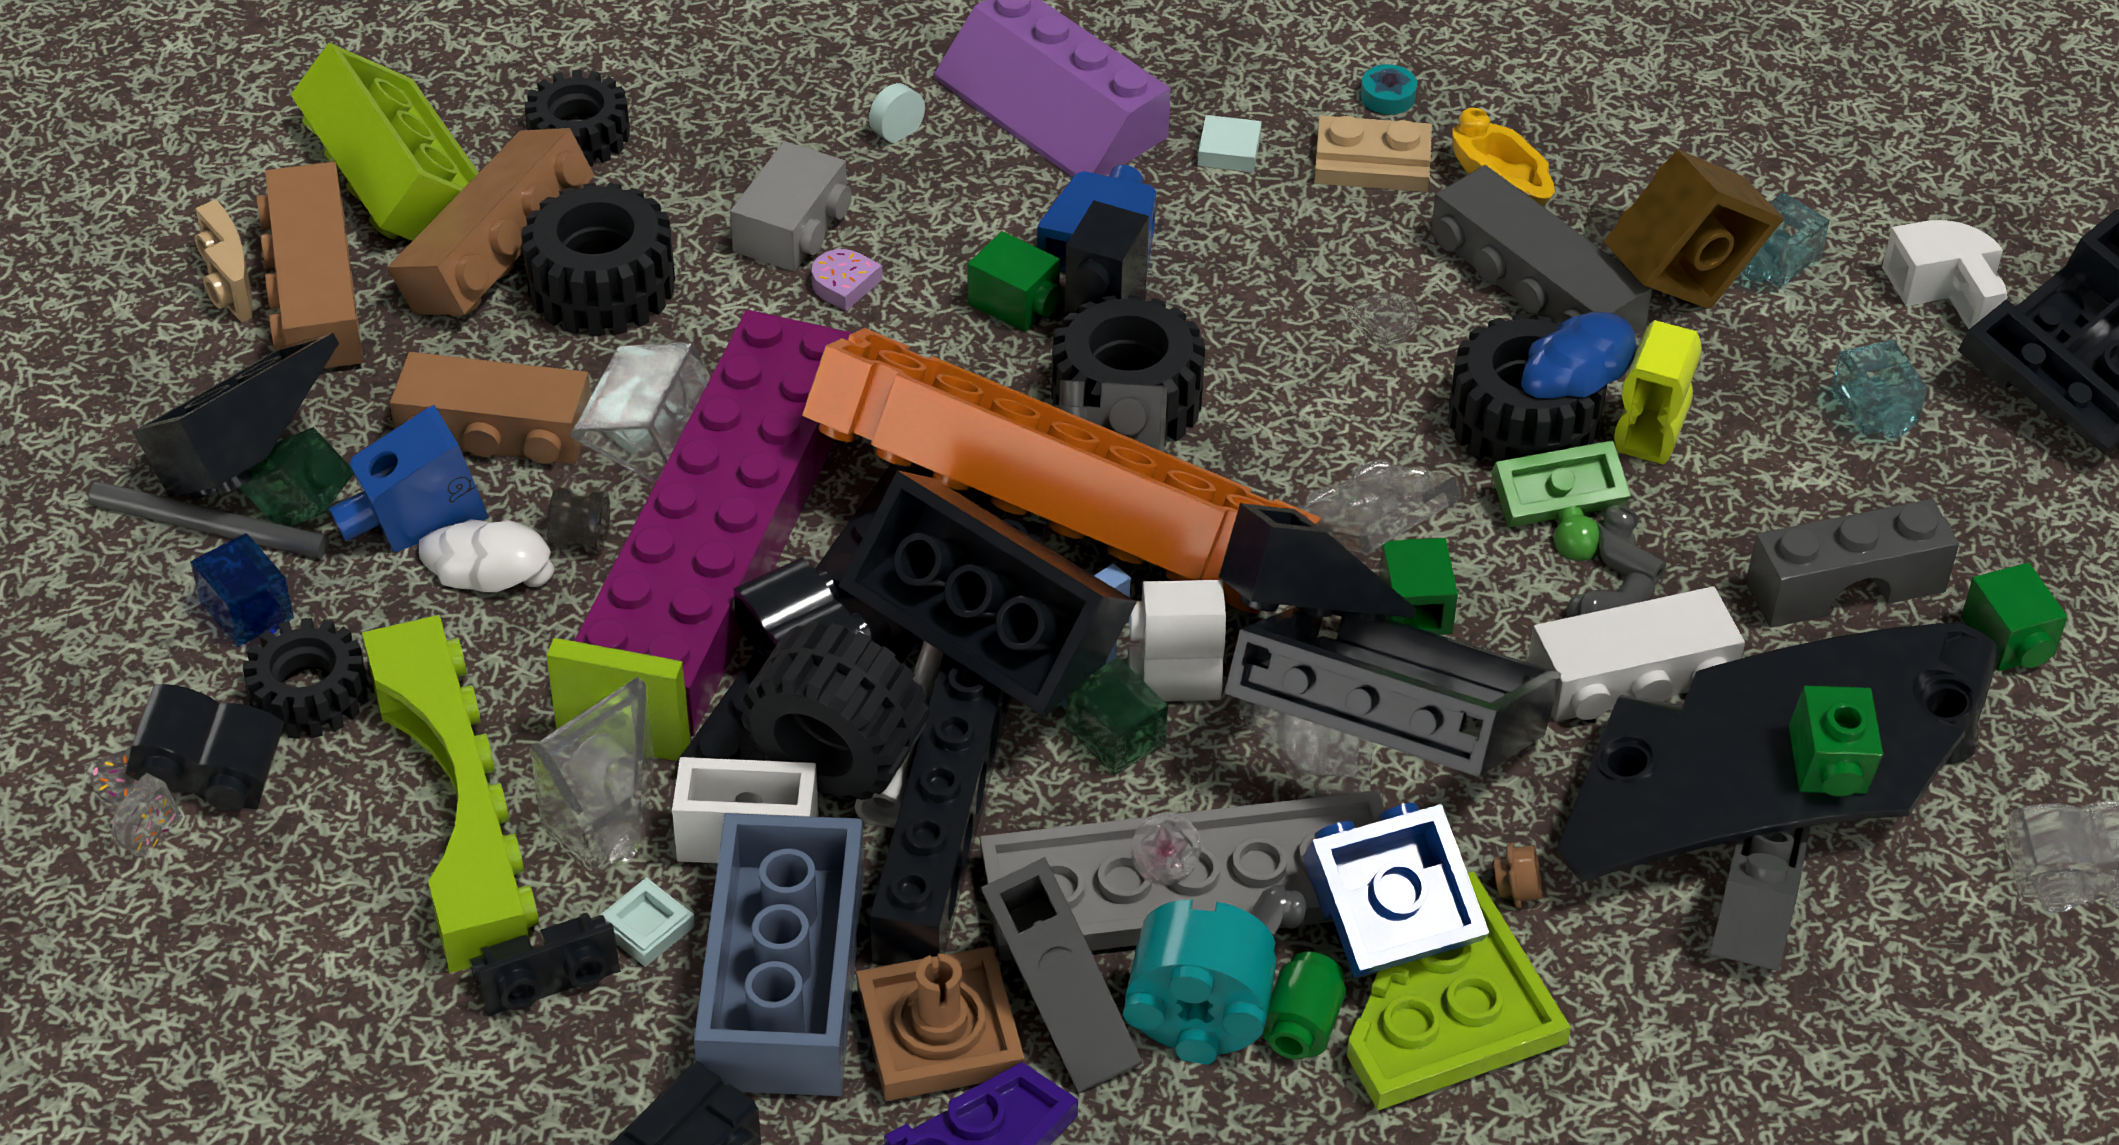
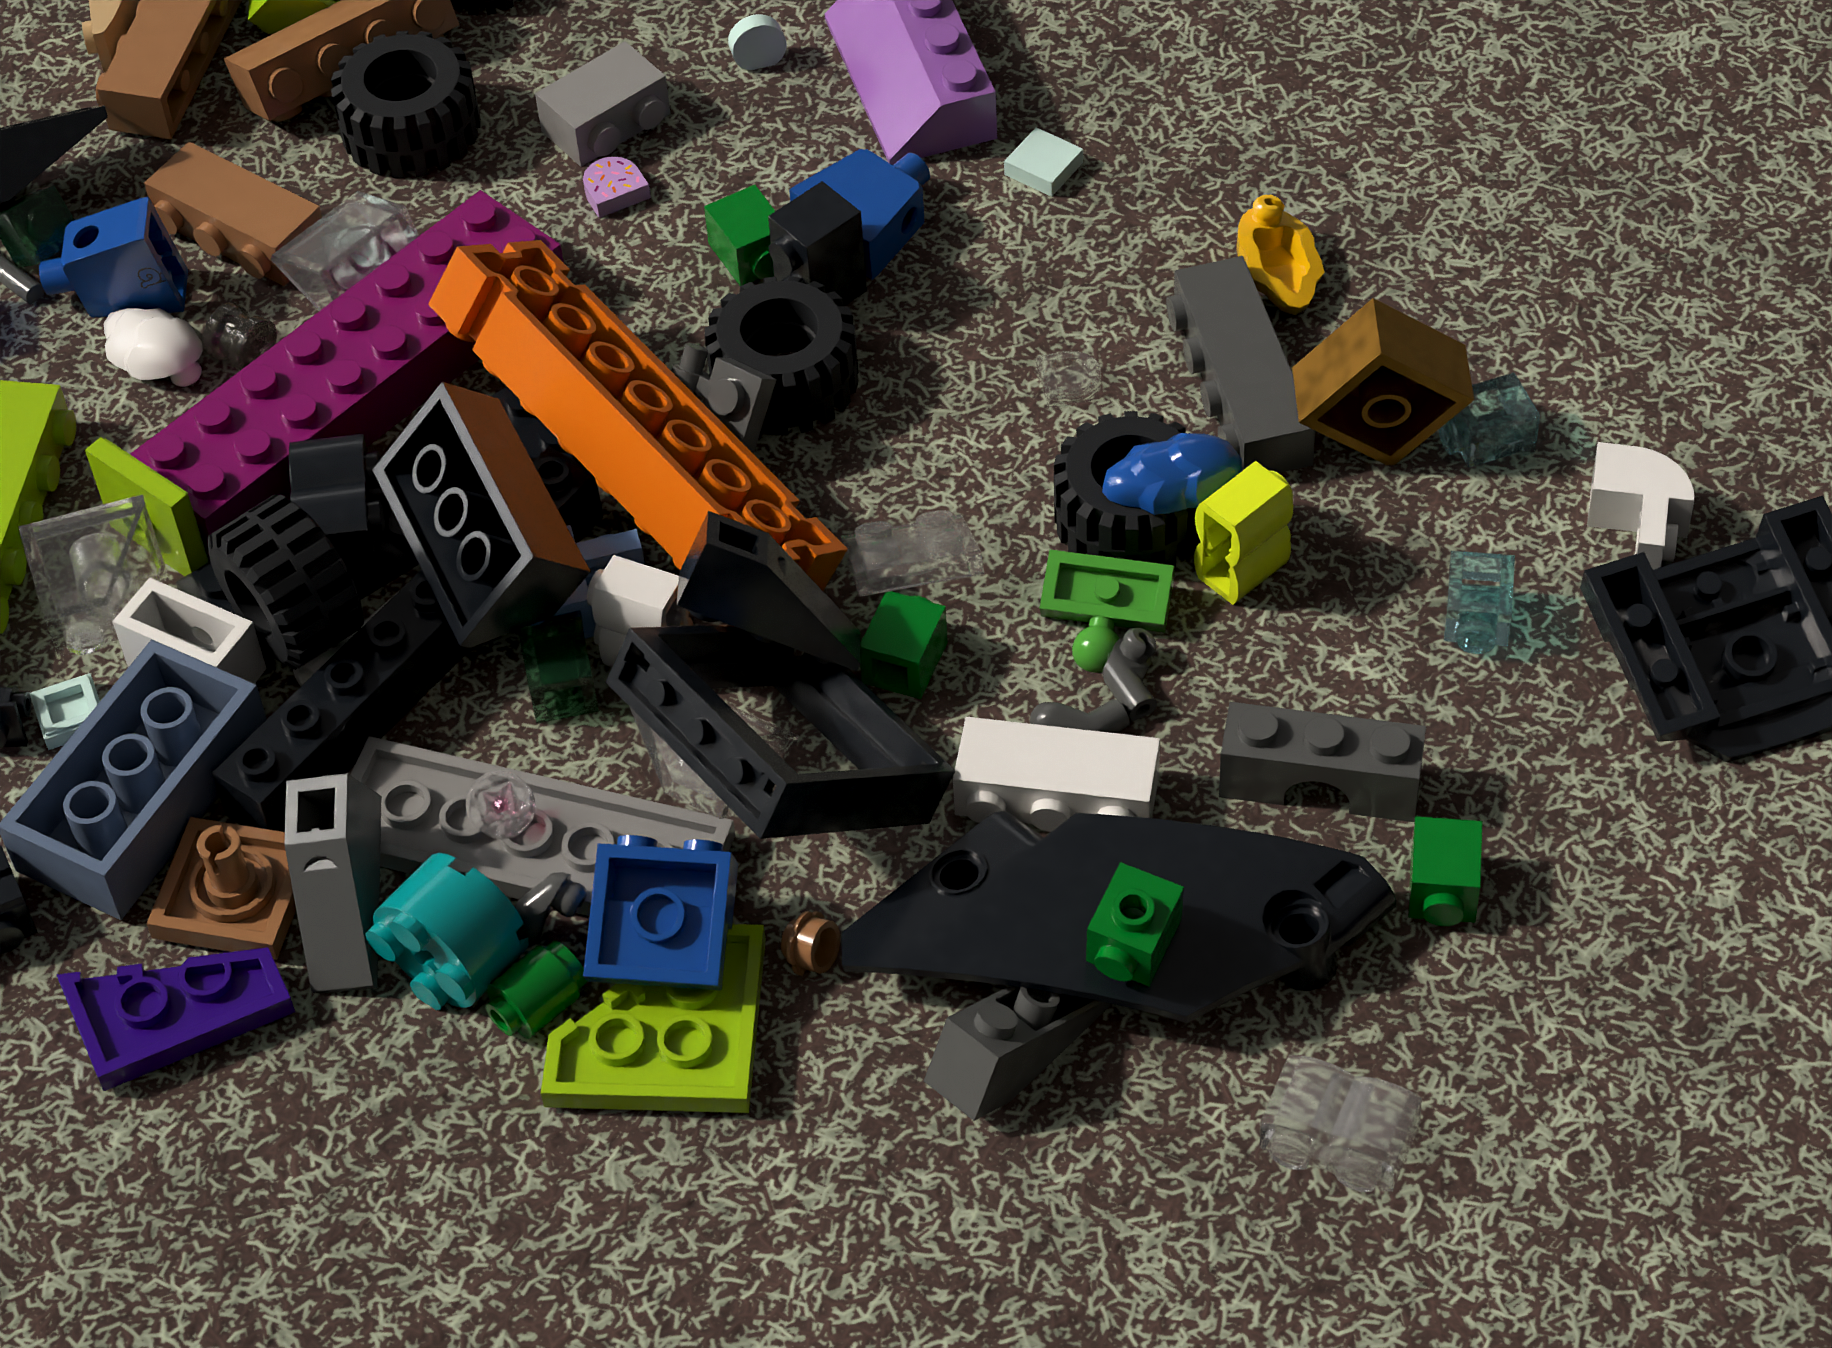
camera: 30 degrees right, 5 degrees up
(1373, 153) = (1171, 212): tan plate -> none
(1388, 89) = (1230, 152): teal tile -> none

